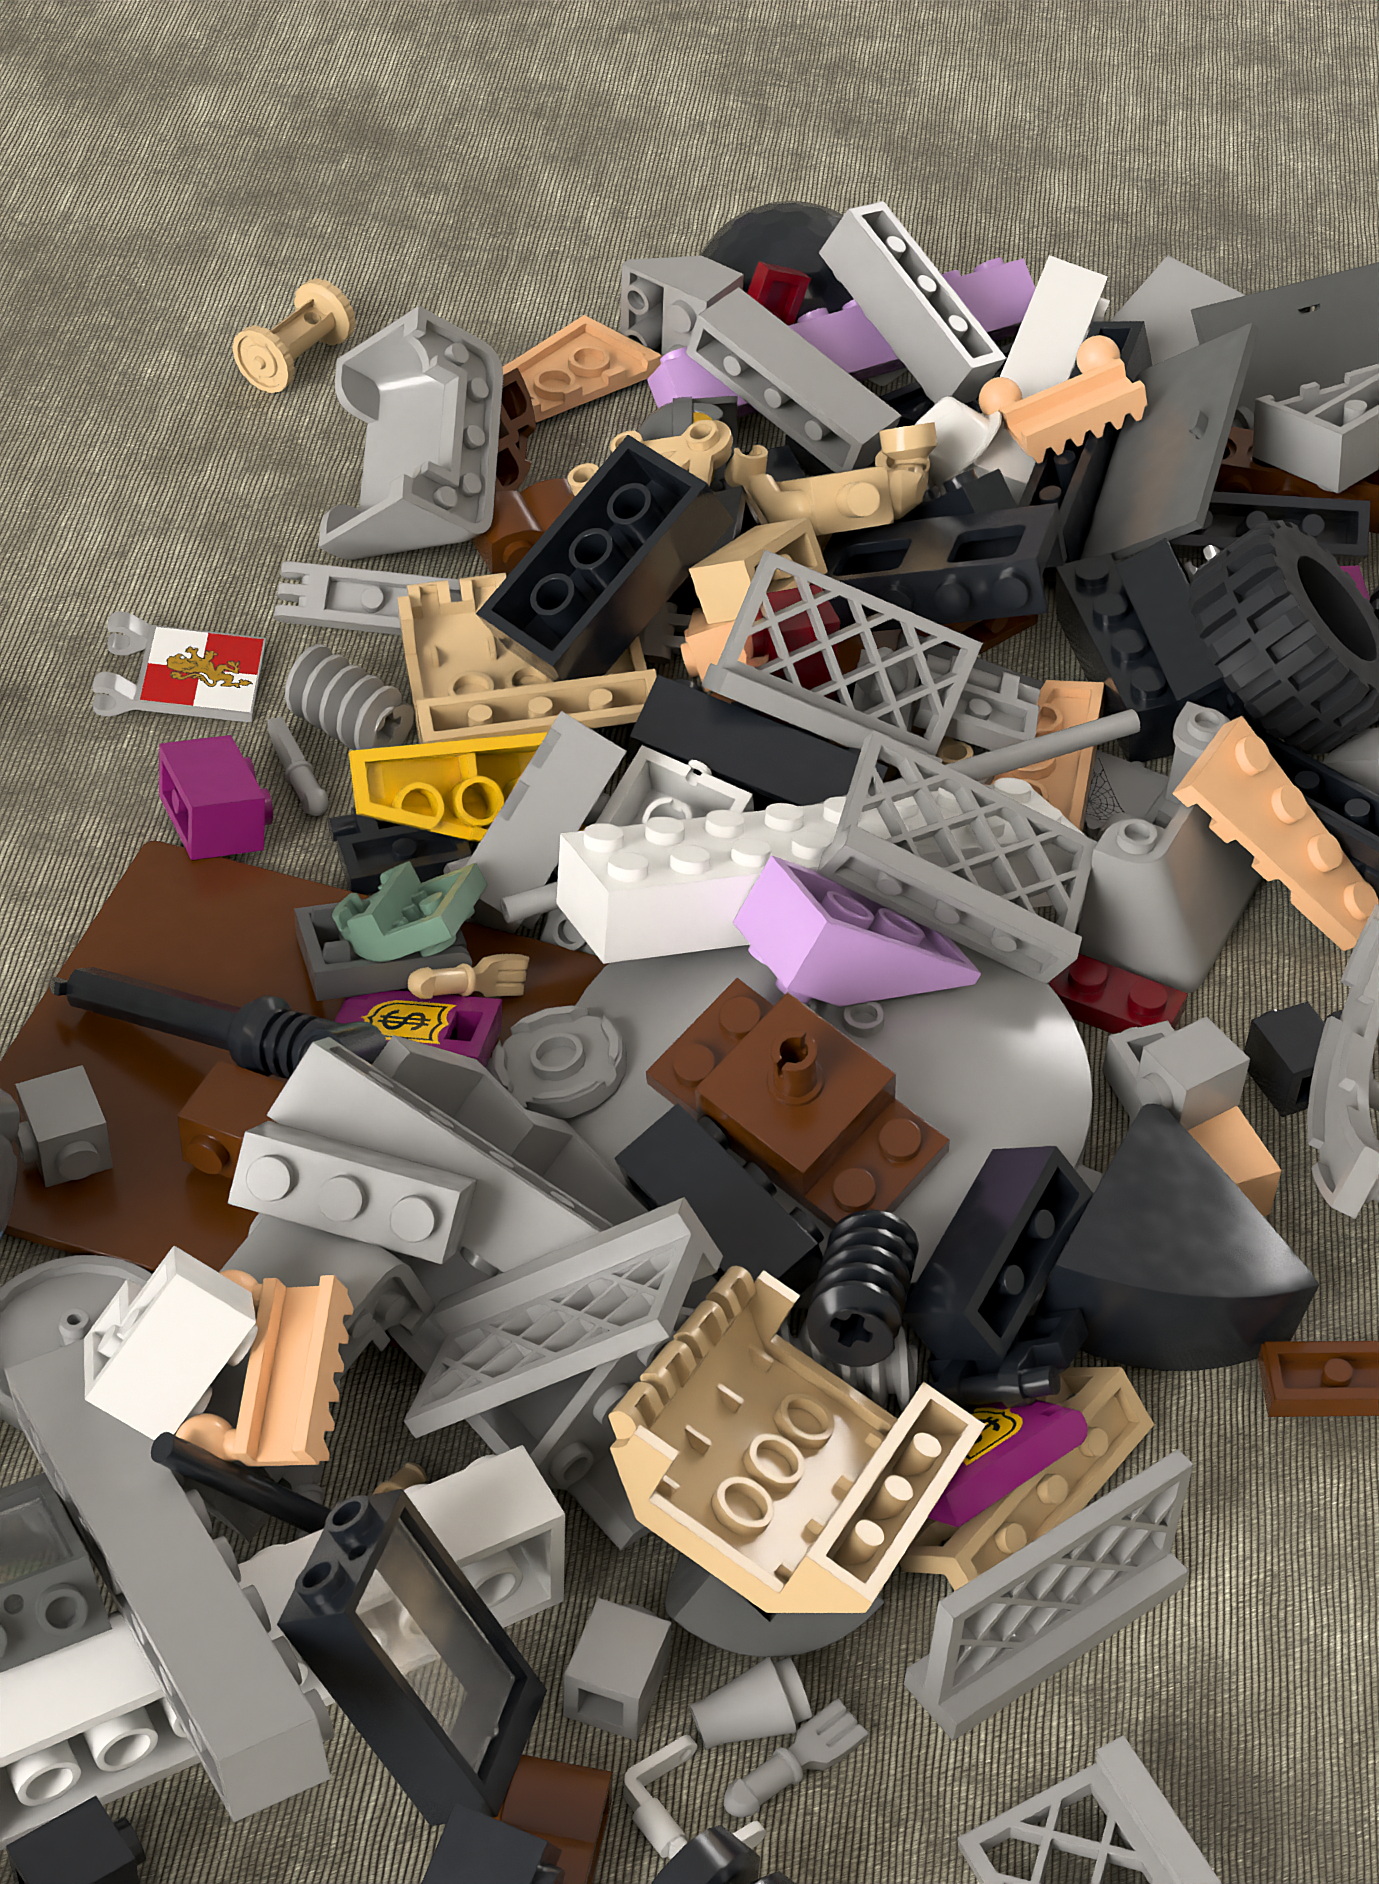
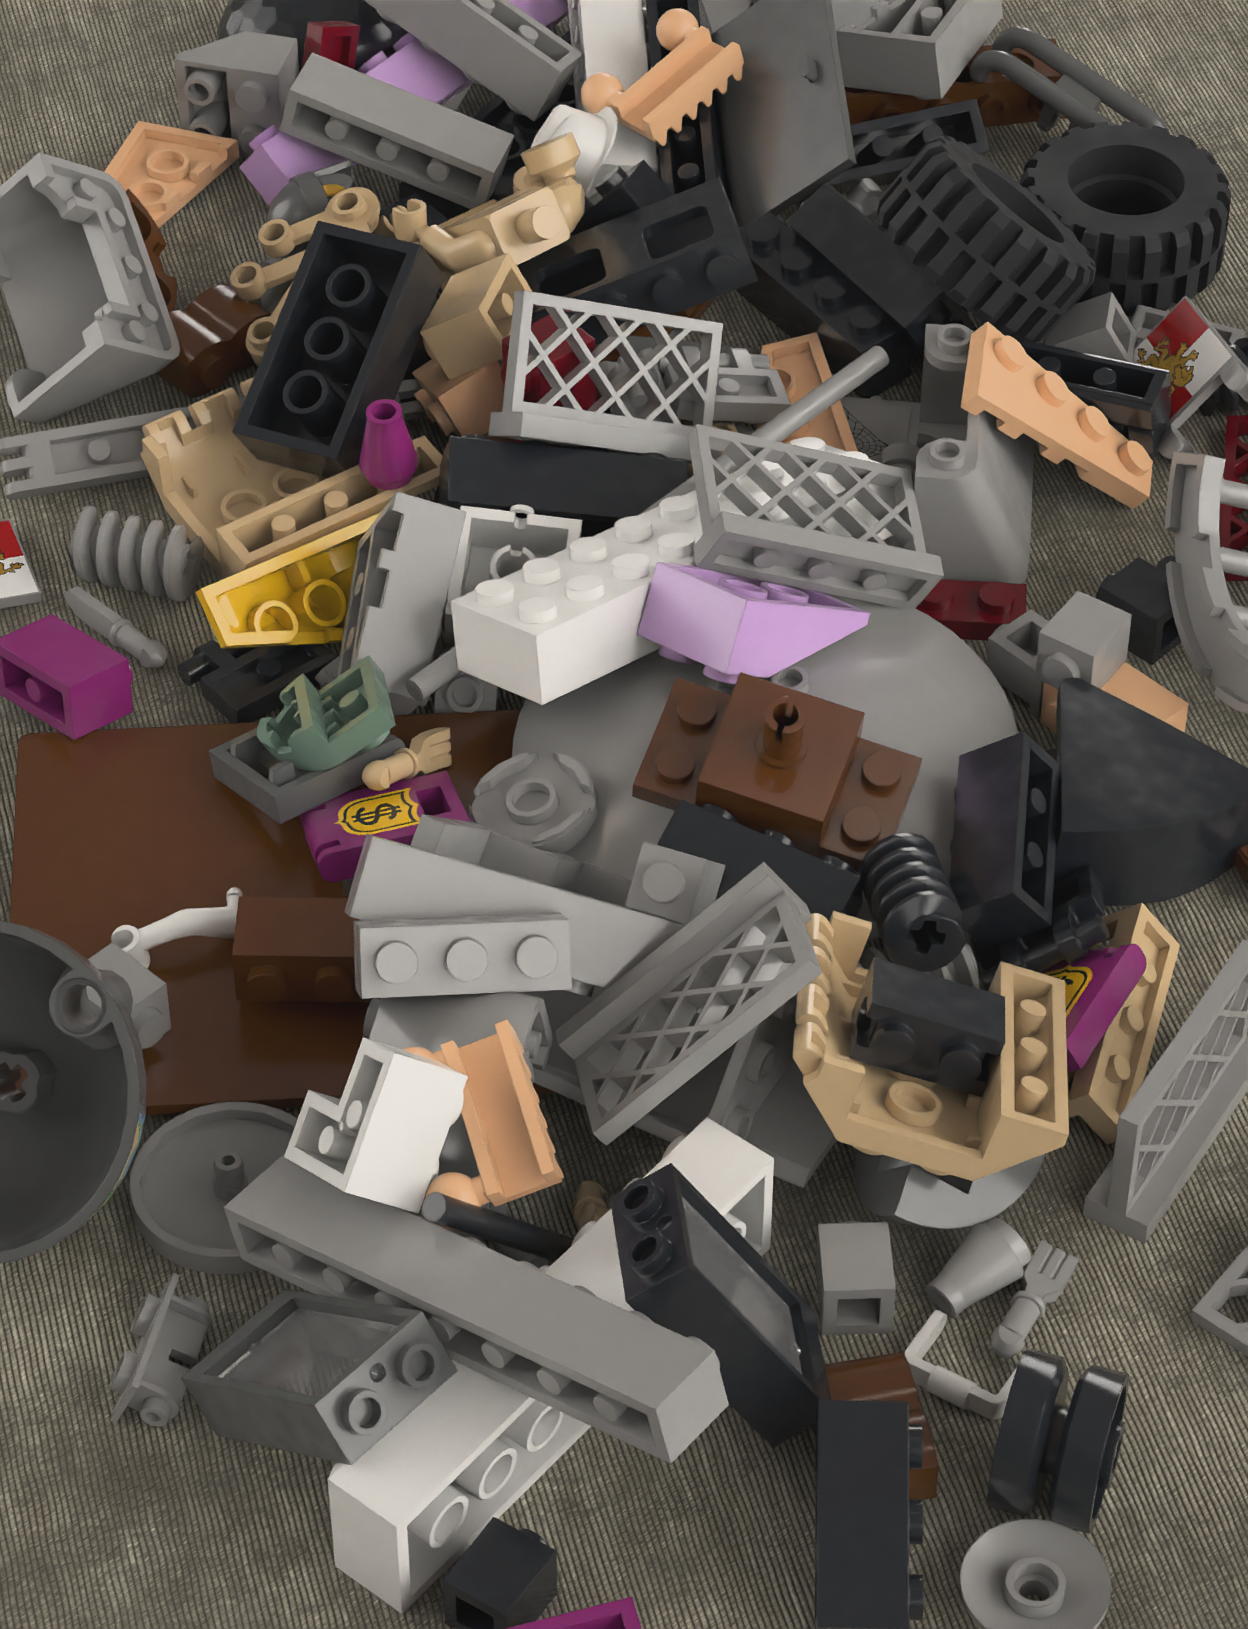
camera: 20 degrees left, 0 degrees up
(120, 1074) = (207, 922): none -> white piece
(259, 1036) = (262, 865): black piece -> none
(602, 669) = (387, 449): none -> magenta cone
(618, 1183) = (673, 883): none -> light grey brick
(796, 1428) = (927, 1027): none -> black brick

